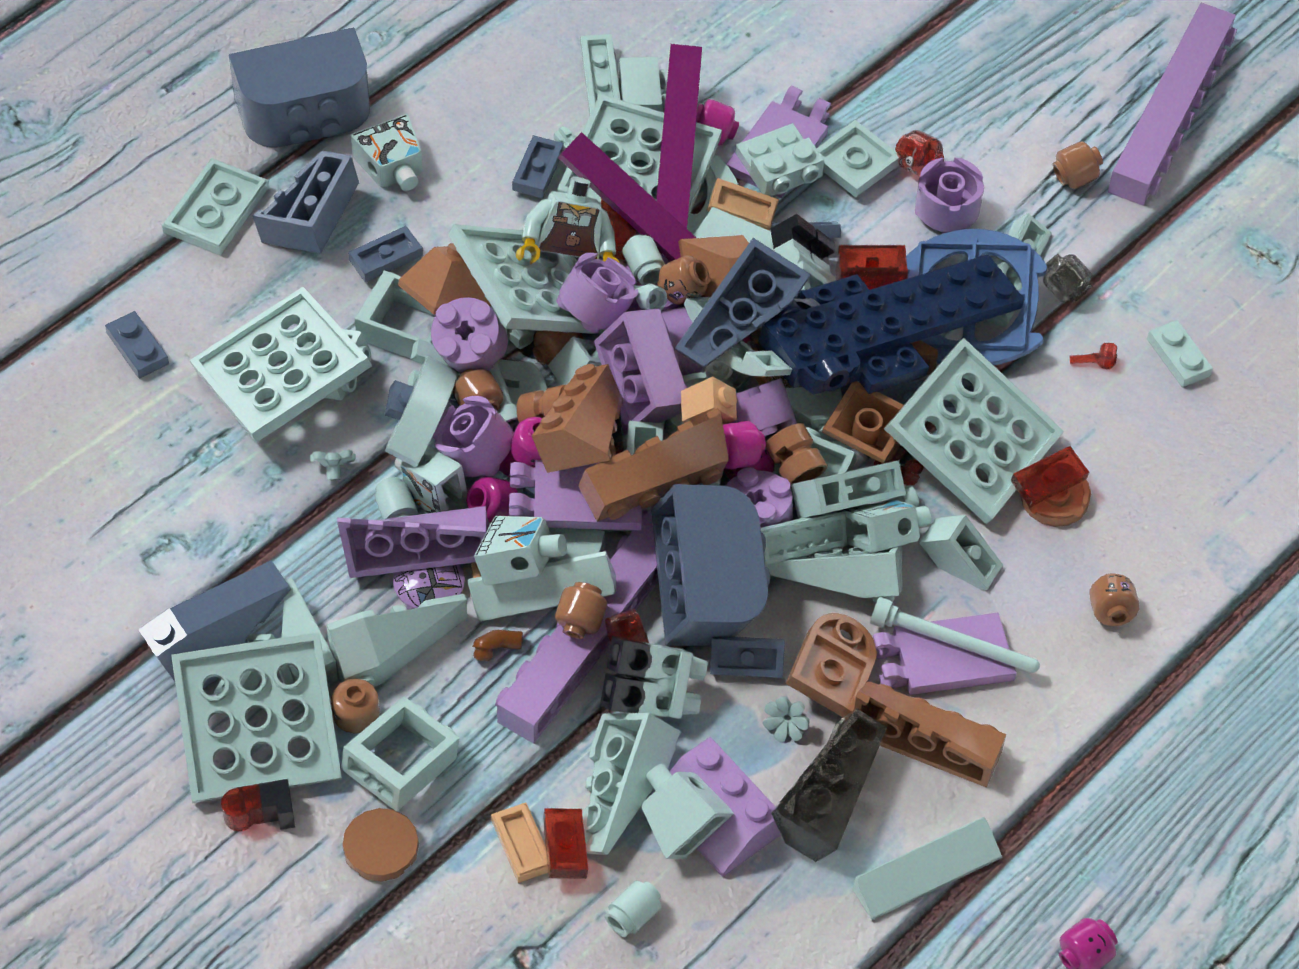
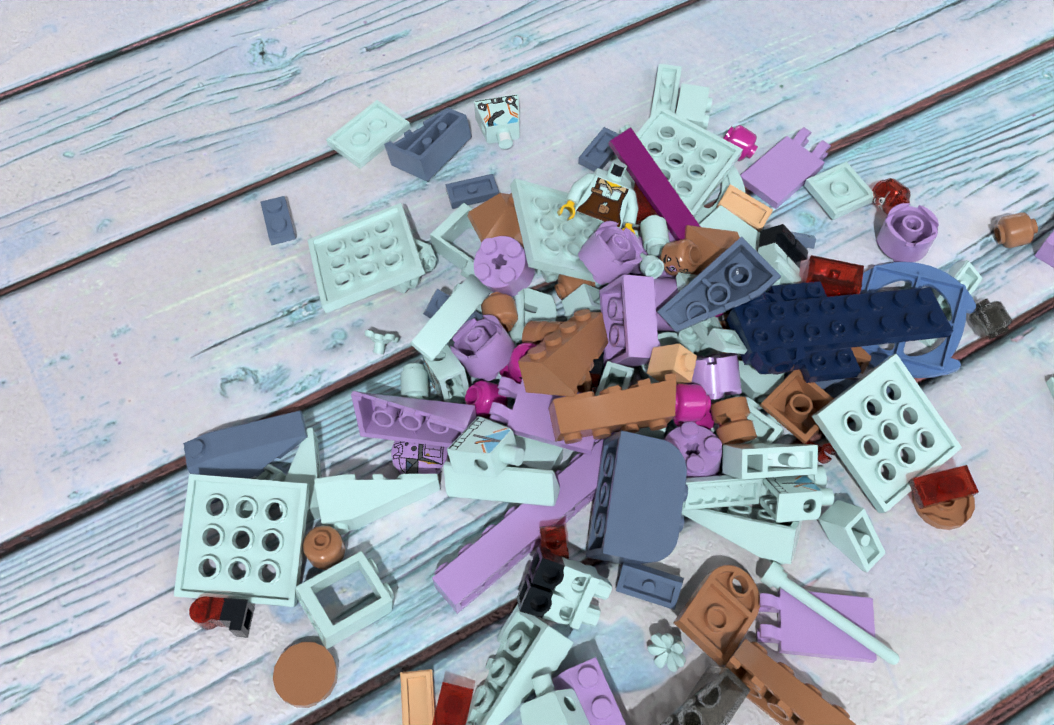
camera: 20 degrees right, 5 degrees up
(301, 88) = (451, 62): sand blue brick -> none
(496, 639) = (453, 515): dark orange arm -> none
(581, 610) = (521, 514): nougat head -> none
(679, 130) = (709, 145): magenta tile -> none
(780, 160) = (782, 180): light aqua plate -> none
(1105, 358) = (1008, 392): clear red hand -> none
(1114, 599) = (978, 613): nougat head -> none

